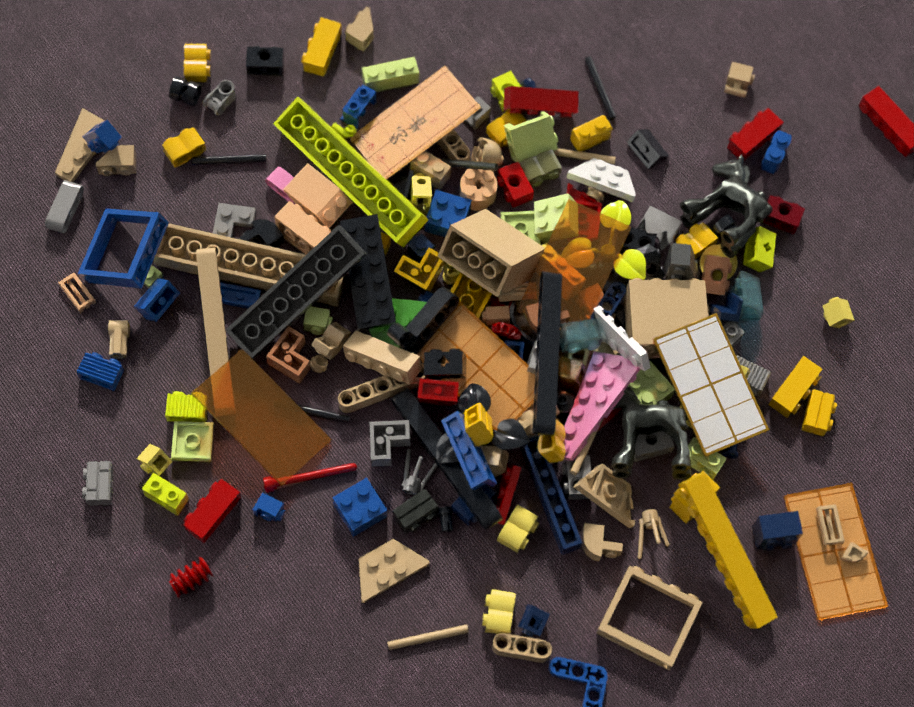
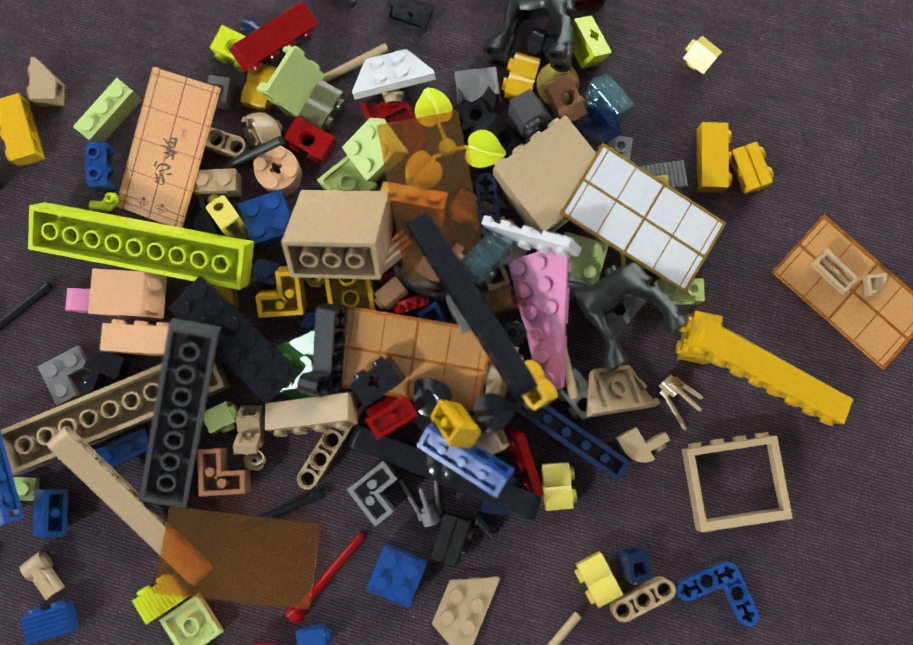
camera: 25 degrees left, 15 degrees up
(591, 133) = (345, 35): yellow brick -> none
(777, 530) = (797, 315): dark blue brick -> none

